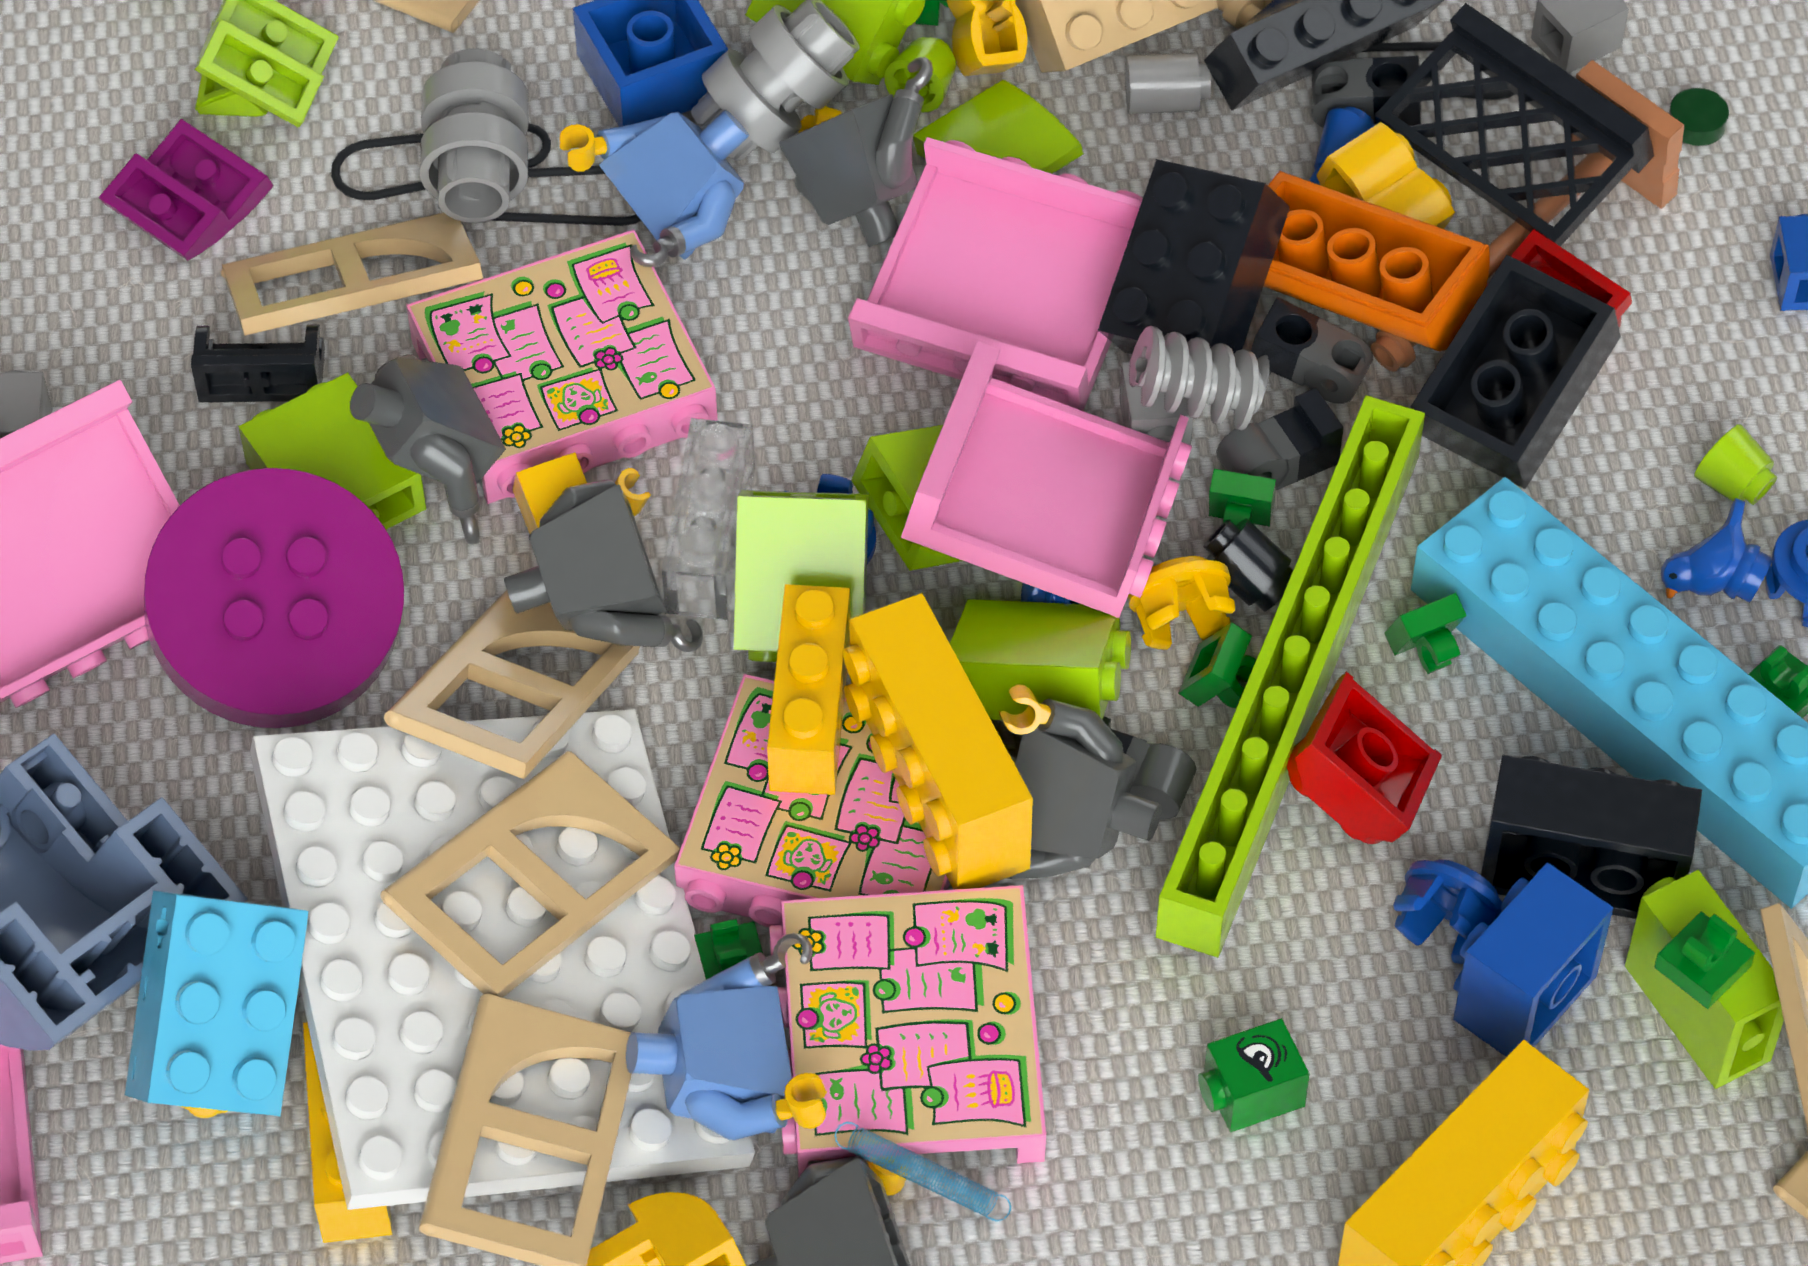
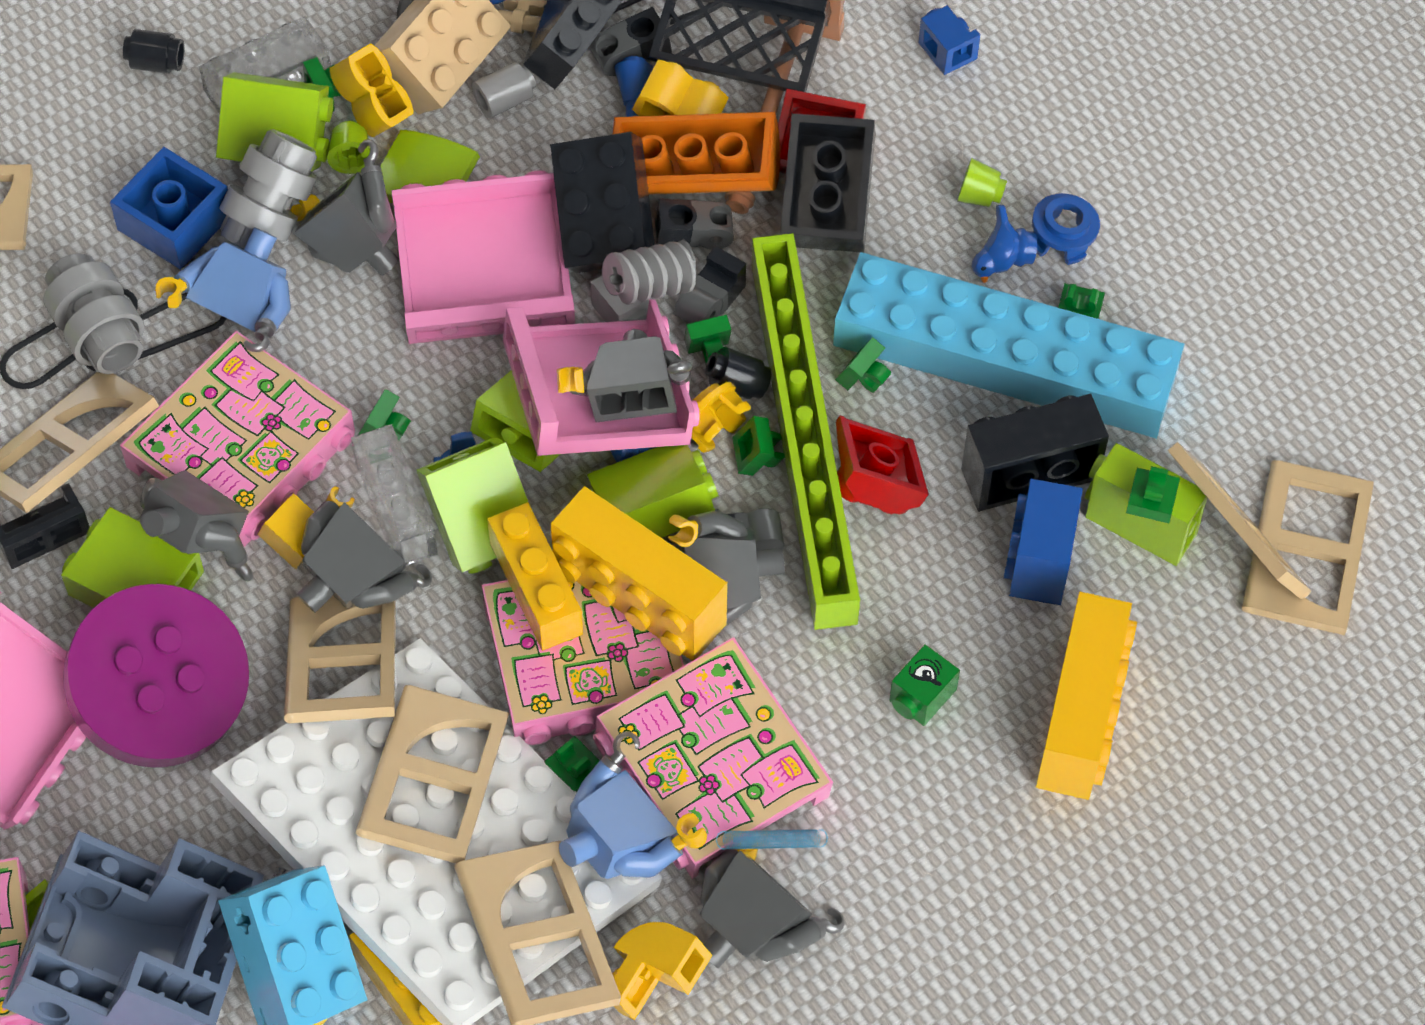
camera: 30 degrees left, 5 degrees up
(762, 410) = (382, 415): none -> green tile
(1072, 491) = (628, 378): none -> dark grey torso
(1441, 892) = (977, 521): blue piece -> none

